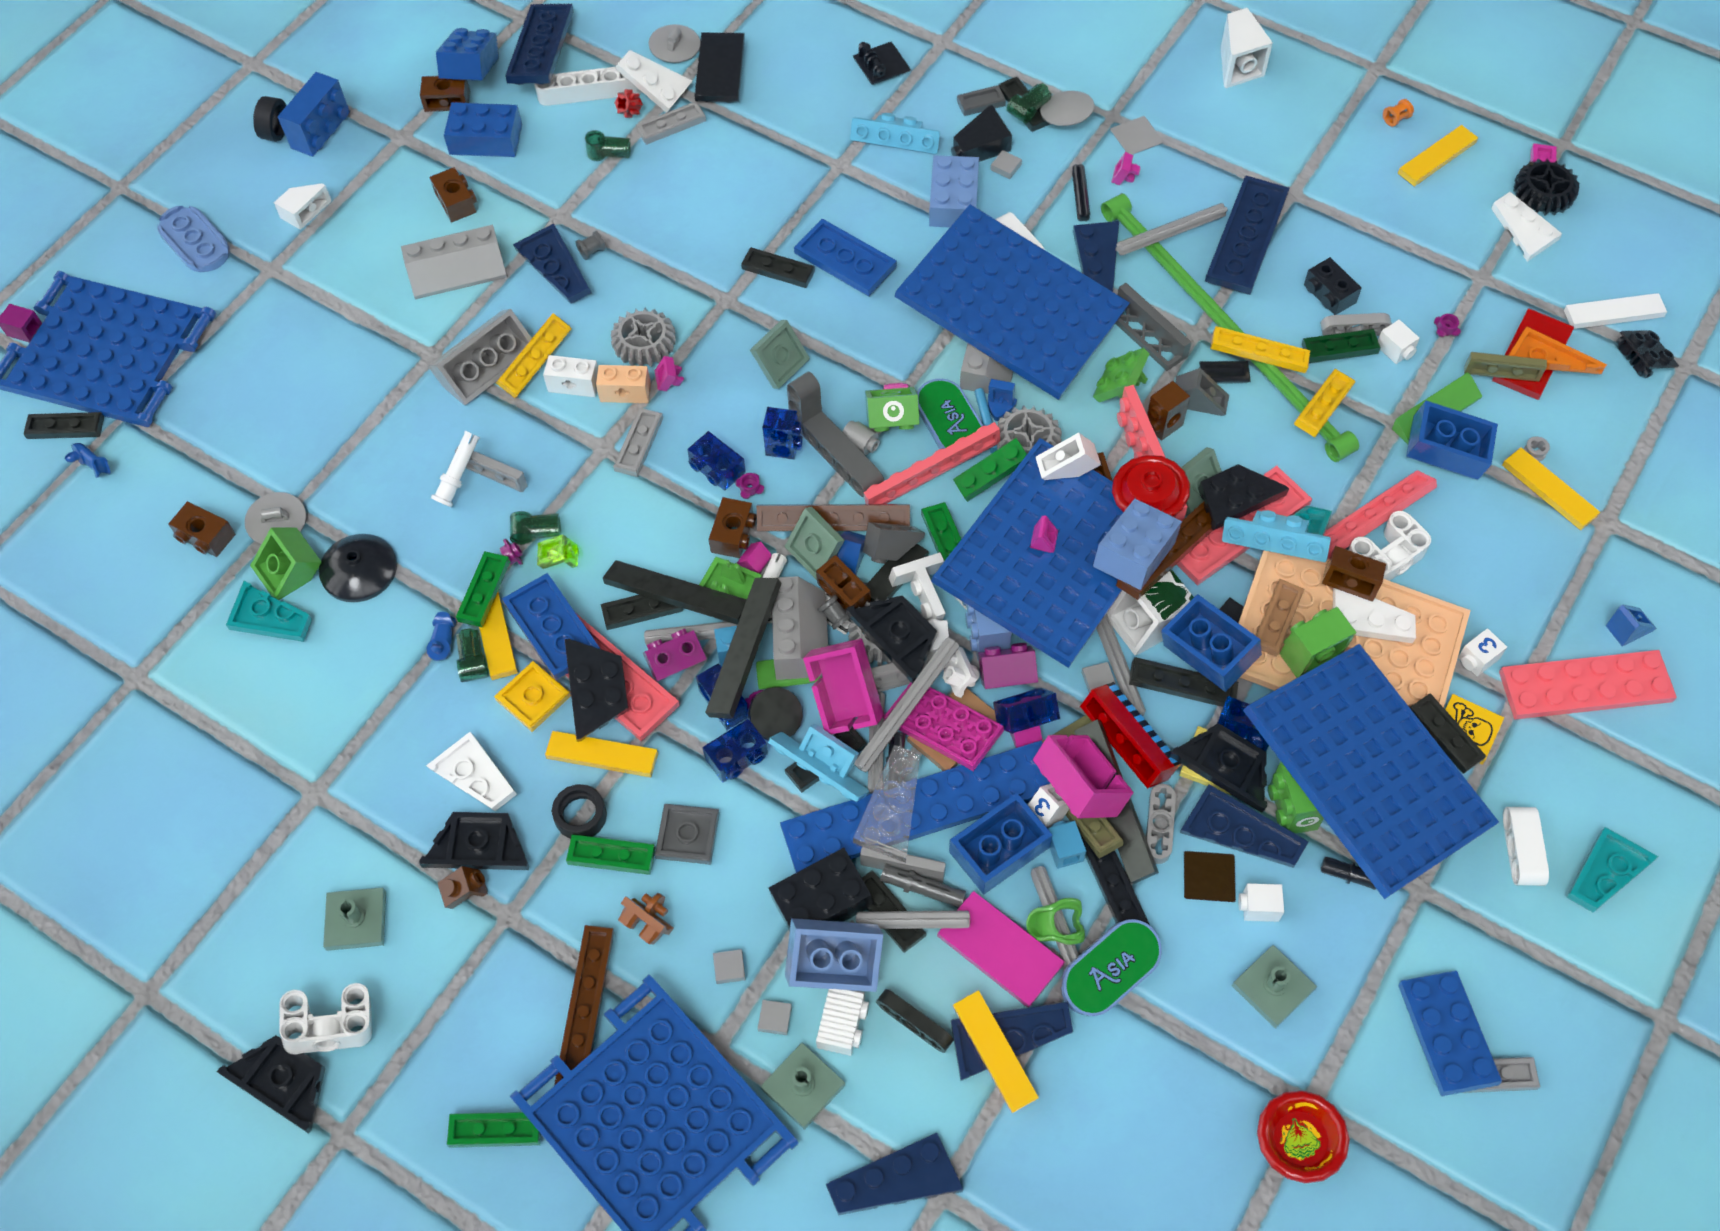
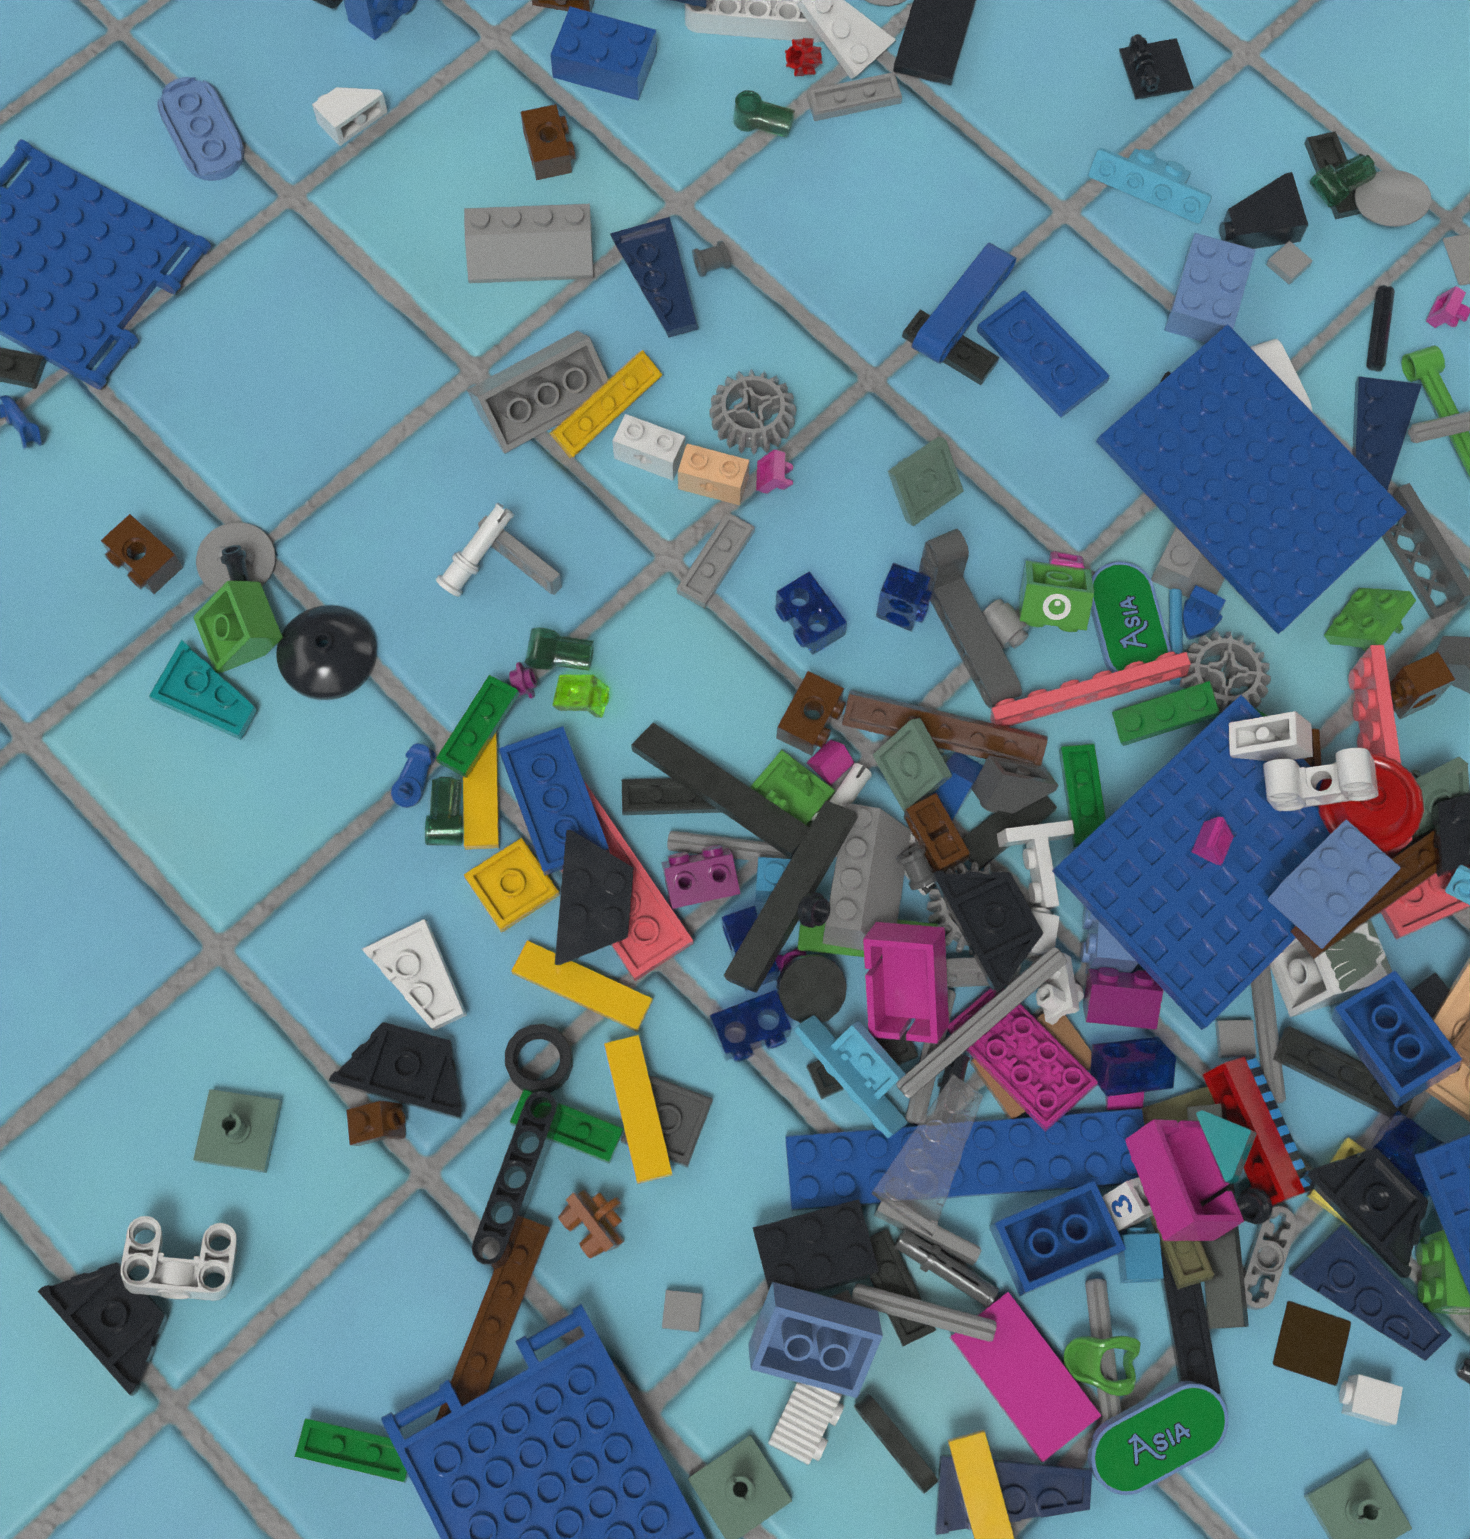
camera: 10 degrees right, 10 degrees up
(275, 516) = (235, 563): none -> black pin
(580, 909) = (519, 1197): none -> black beam
(663, 828) = (638, 1109): none -> yellow tile
(746, 480) = (848, 648): magenta plate -> none
(762, 650) = (813, 910): none -> black plate
(774, 1017) = (724, 1392): light grey tile -> none
(780, 235) = (964, 303): none -> blue beam
(979, 100) = (1278, 156): dark grey tile -> none
(1093, 487) = (1295, 787): none -> white beam
(1109, 740) = (1228, 1143): none -> teal slope
(1141, 785) = (1254, 1205): none -> black plate

